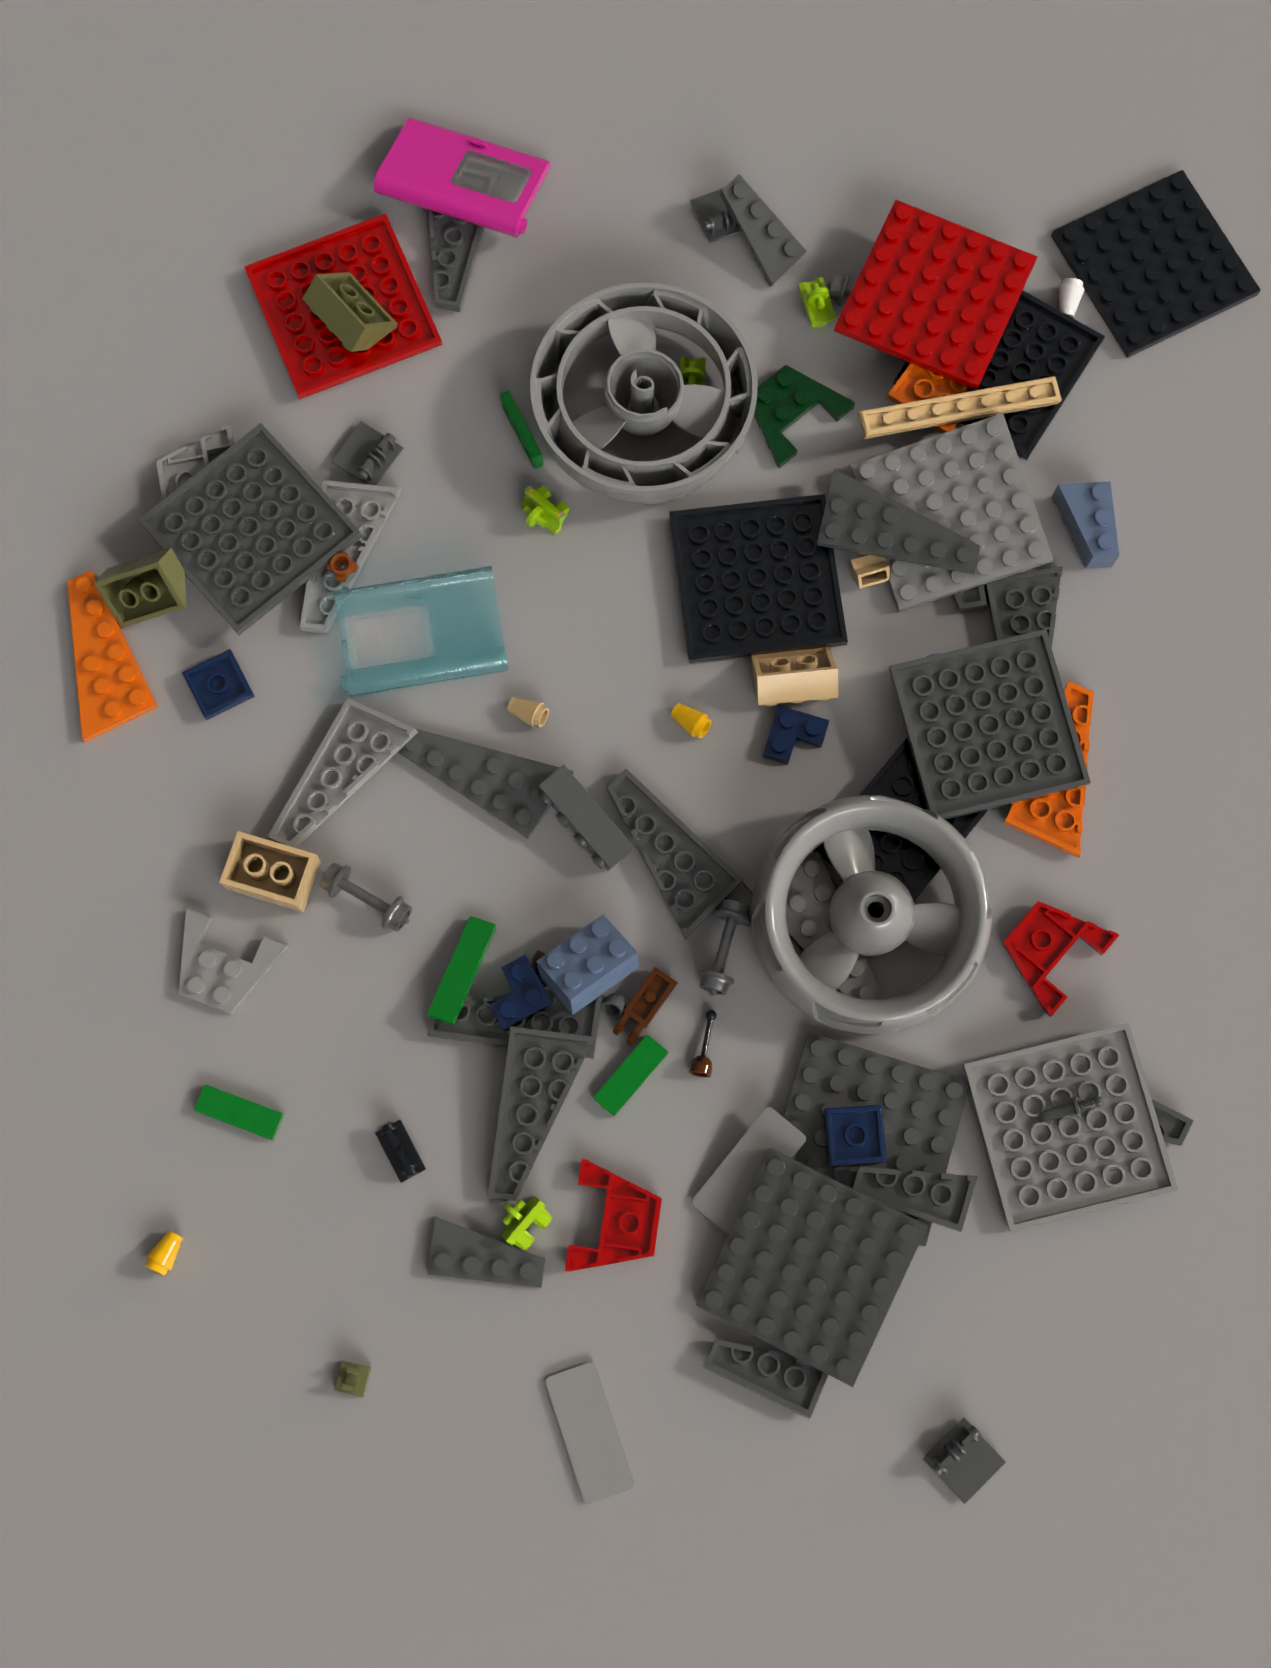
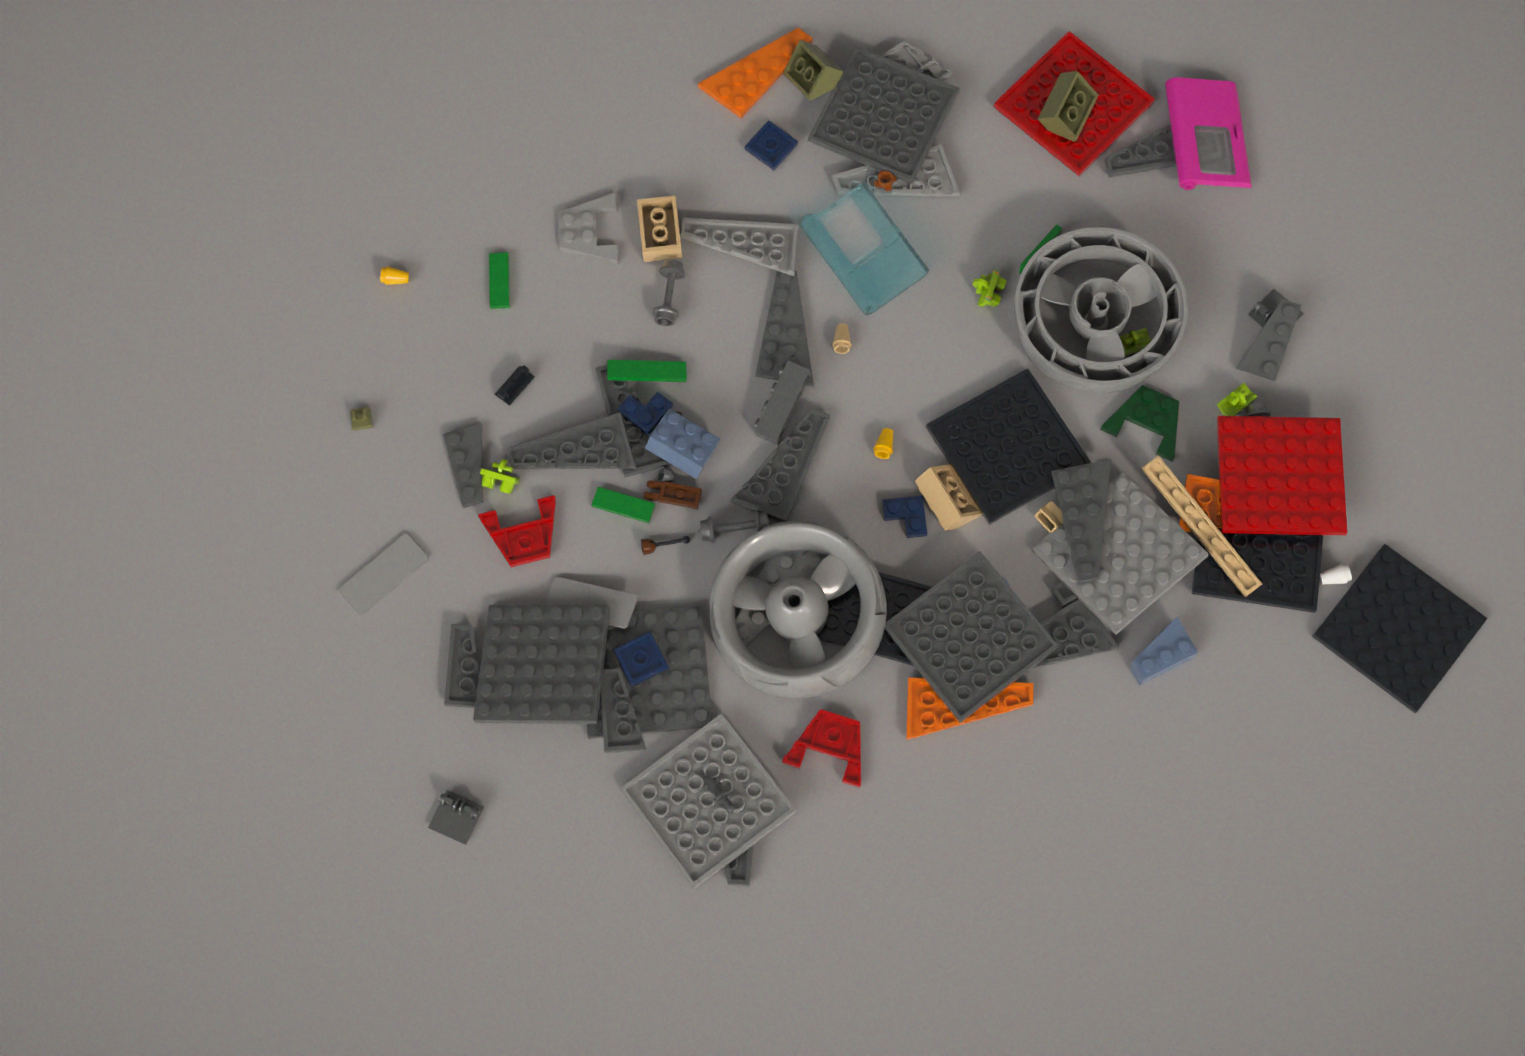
camera: 70 degrees right, 5 degrees down
(367, 454) = (975, 164): dark grey hinge -> none

